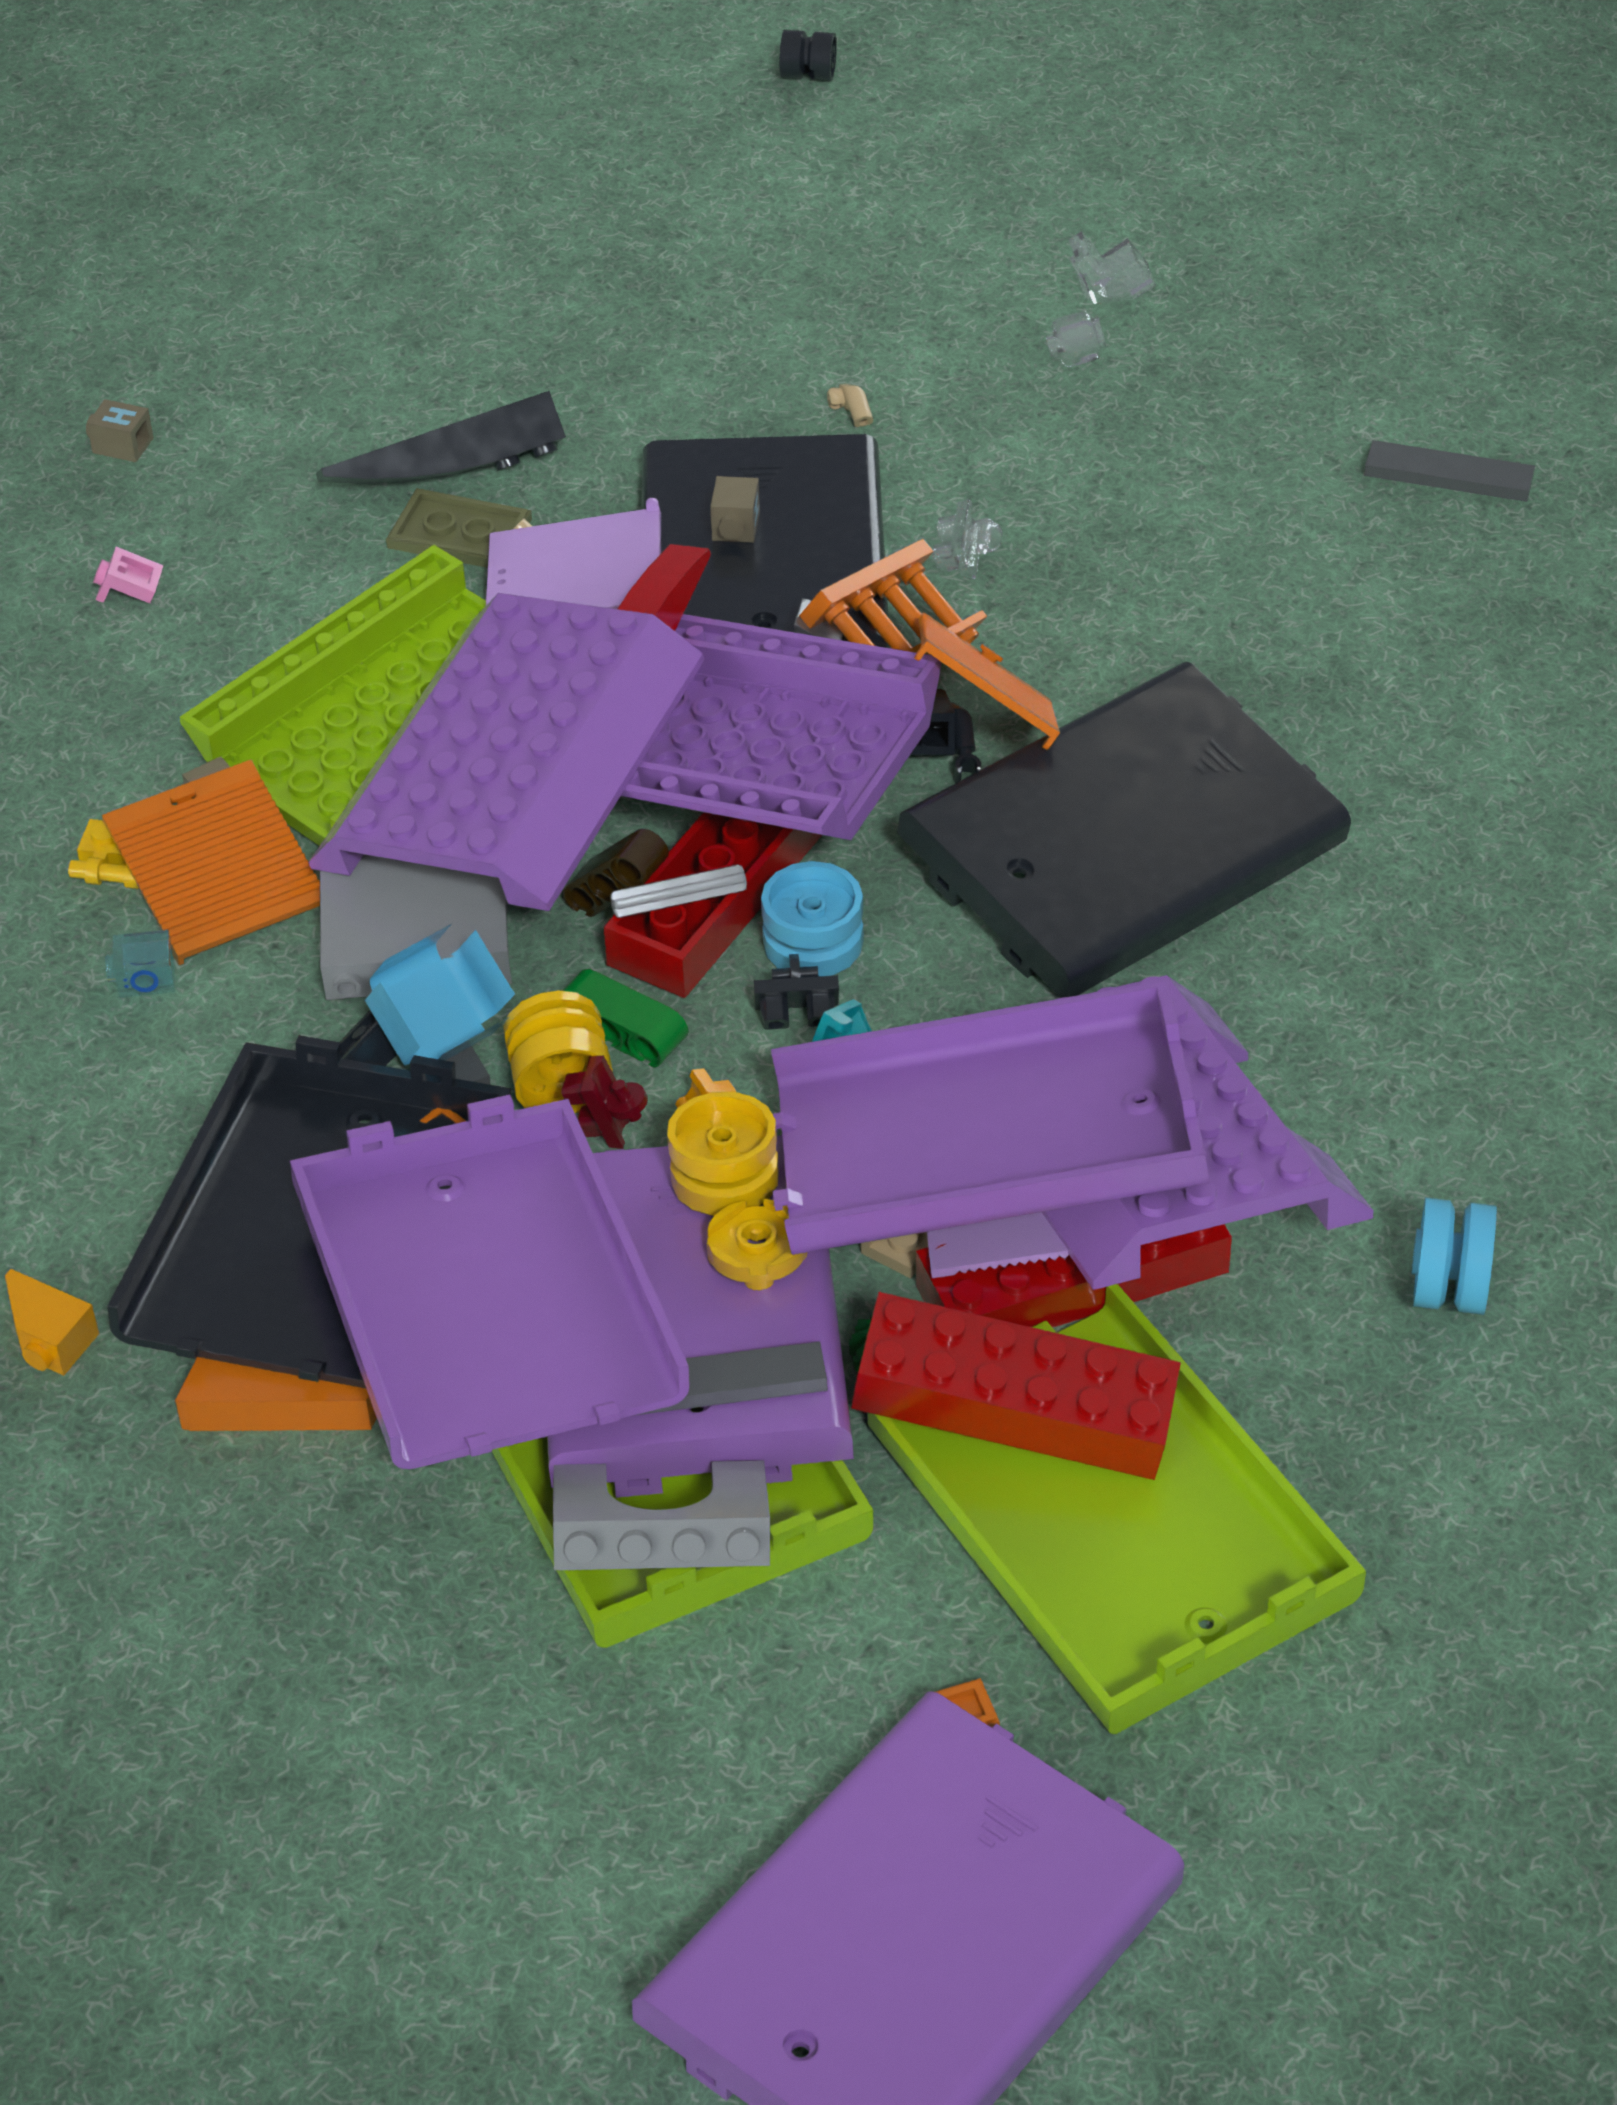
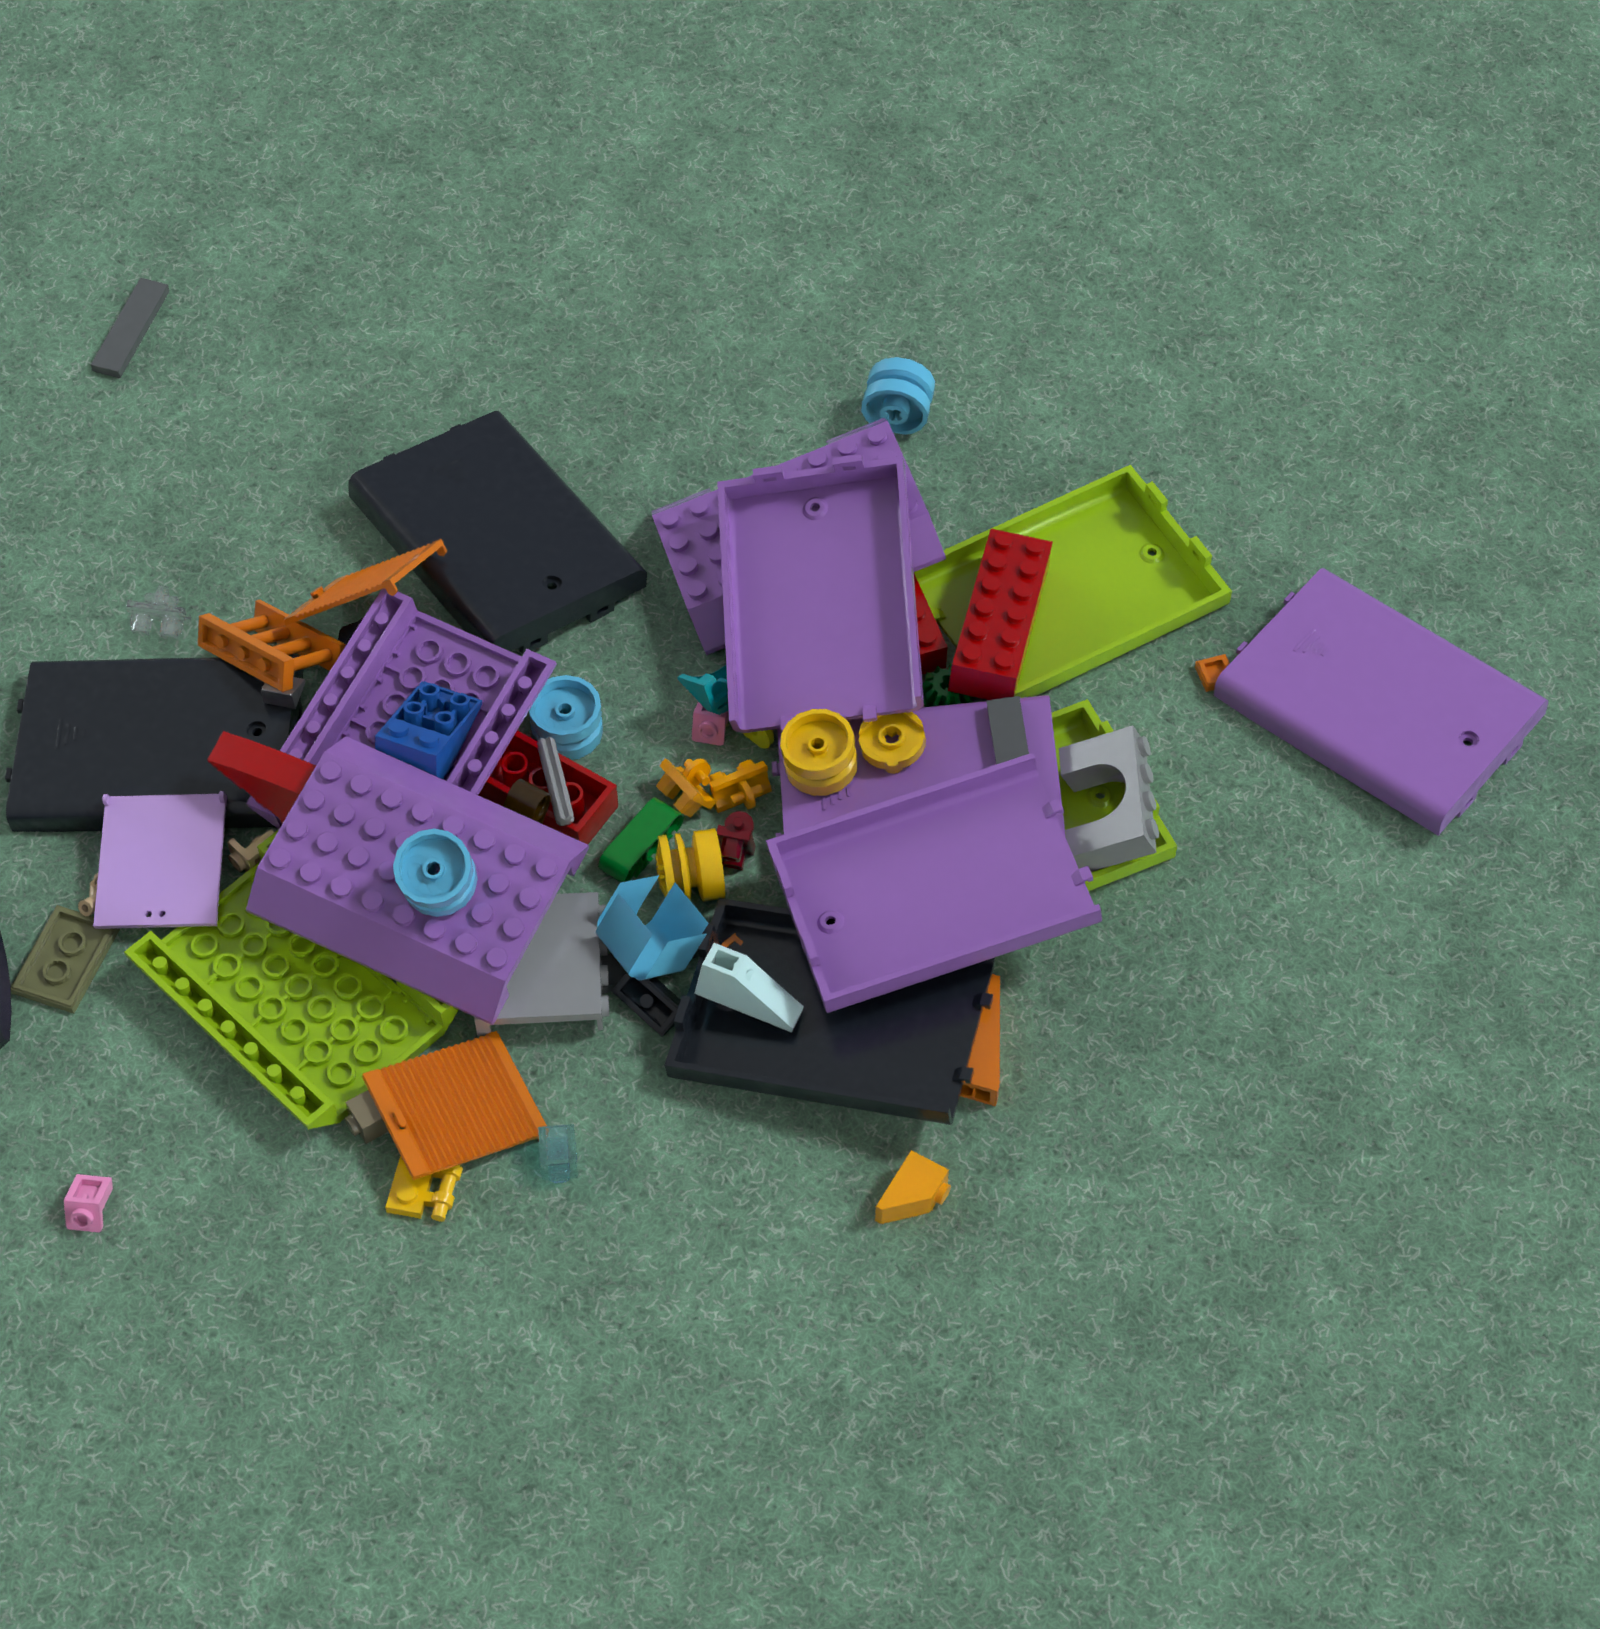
camera: 90 degrees left, 10 degrees up
(349, 1095) = (745, 987): none -> light aqua slope
(454, 718) = (417, 874): none -> medium azure wheel
(711, 1047) = (689, 781): none -> light orange hips
(728, 735) = (429, 728): none -> blue slope
(735, 509) = (131, 739): dark tan brick -> none
(795, 989) = (625, 732): black hips -> none

